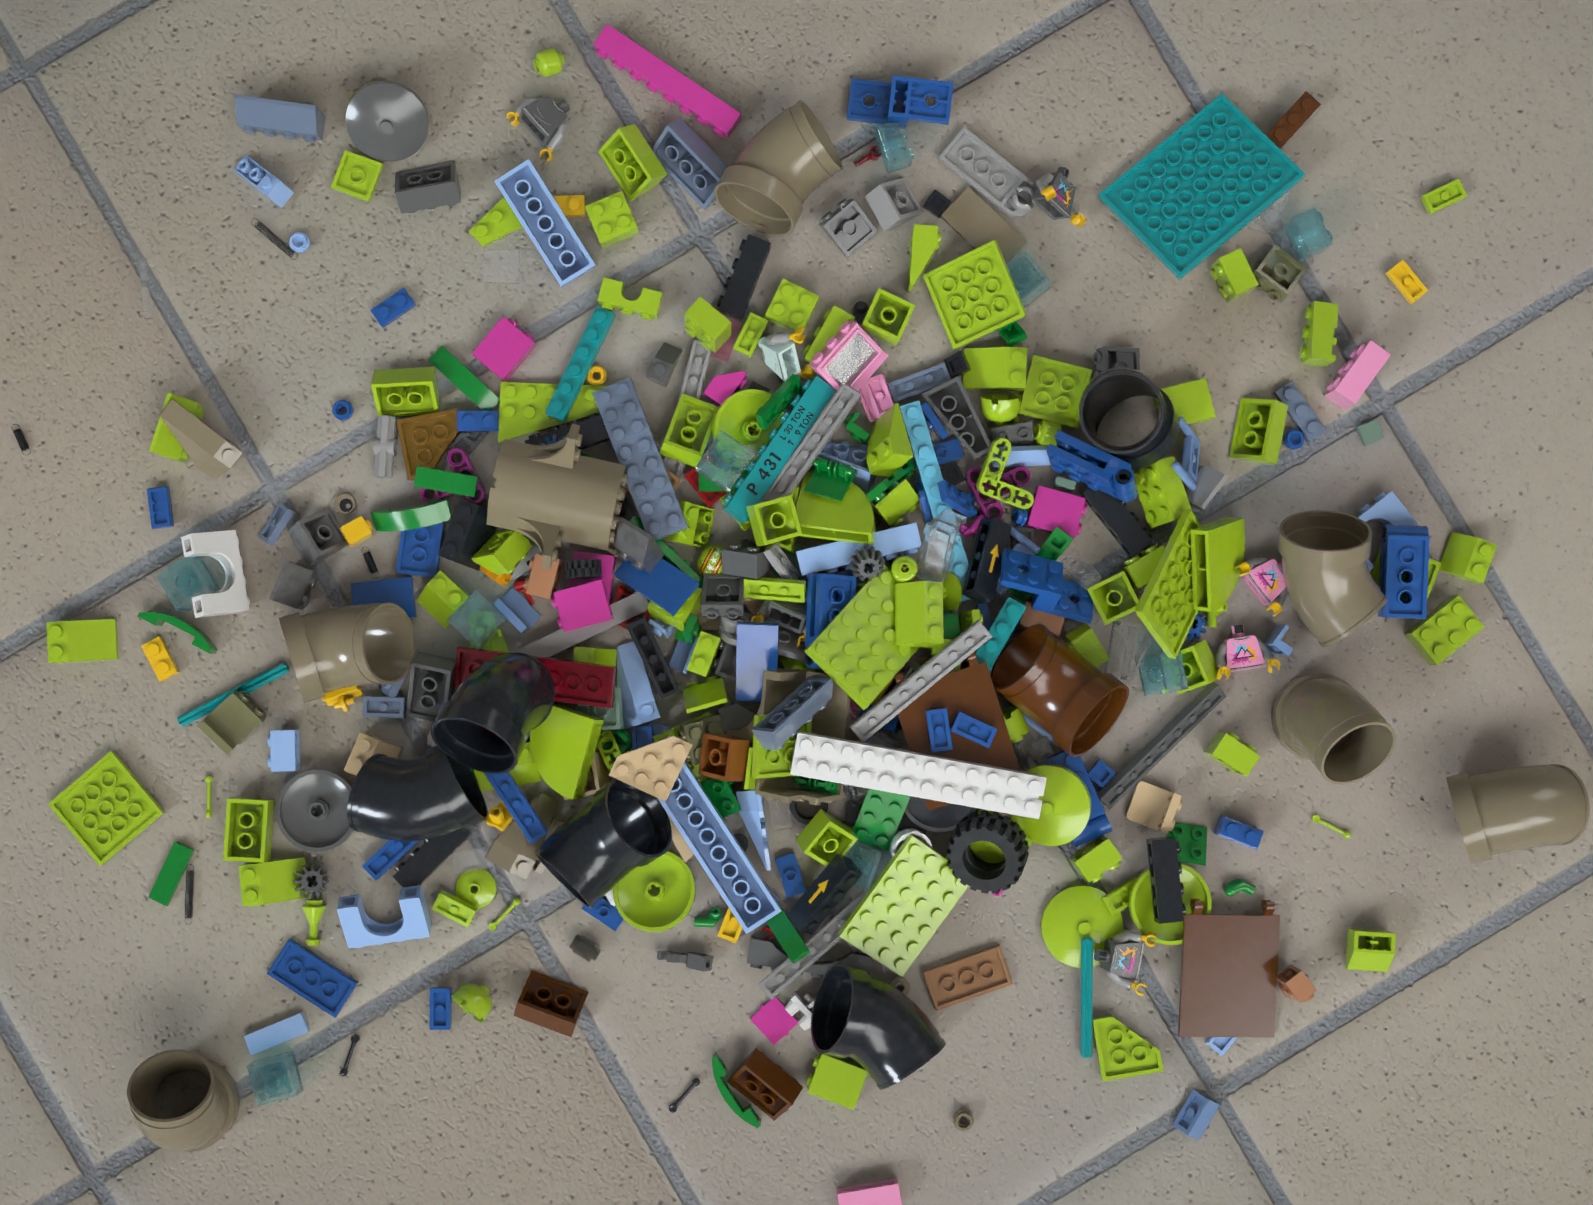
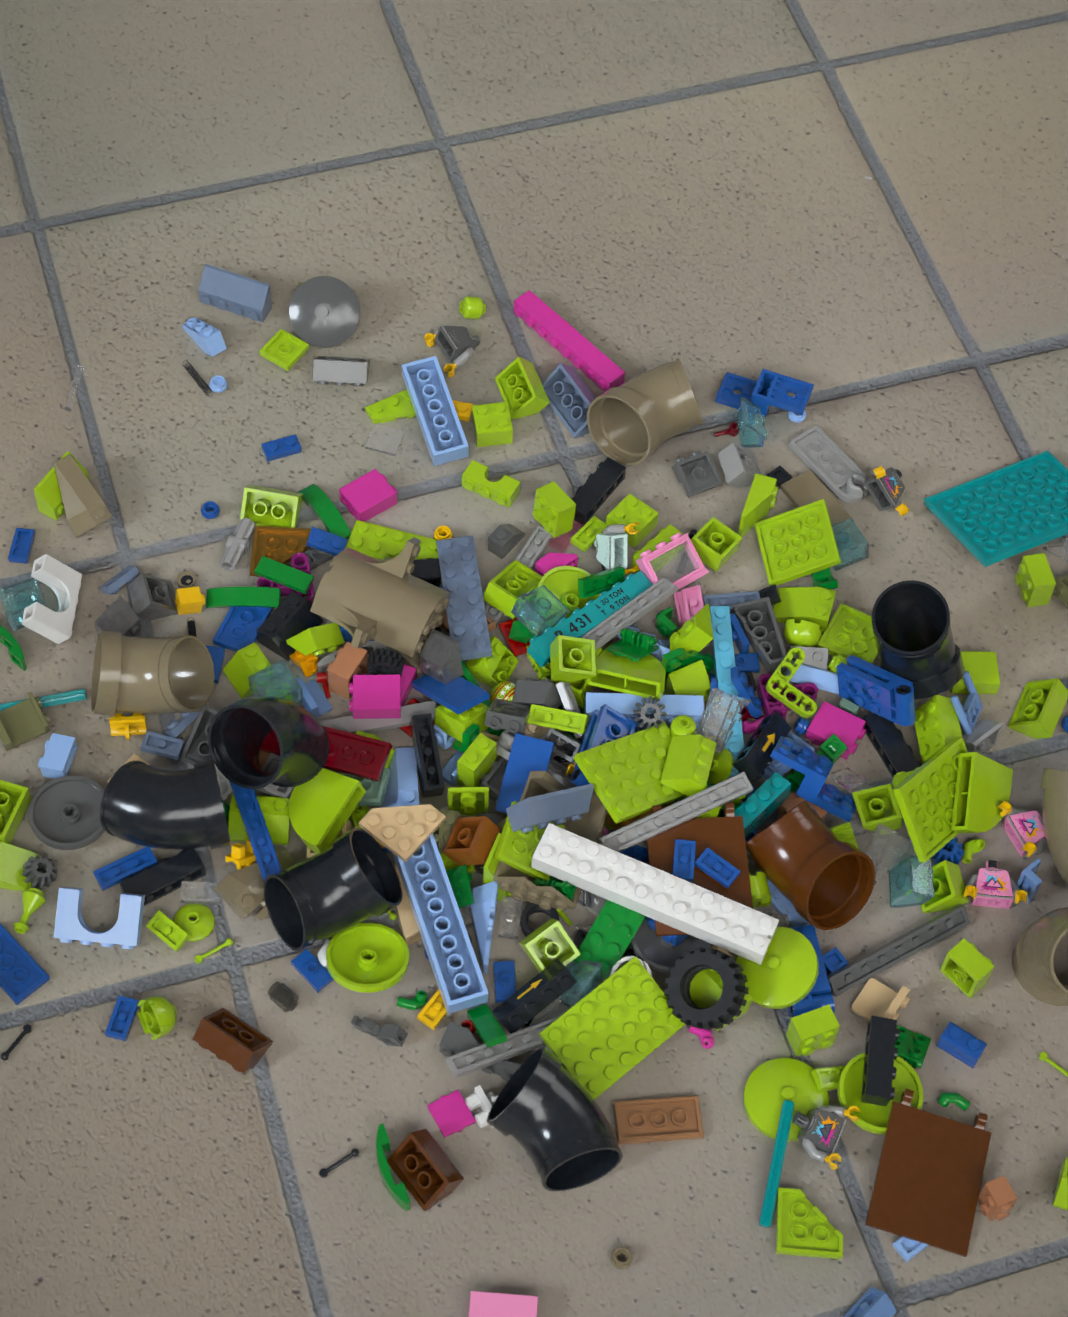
camera: 10 degrees right, 30 degrees down
(580, 364) = (434, 517): teal plate -> none
(836, 1080) = (500, 1182): lime brick -> none

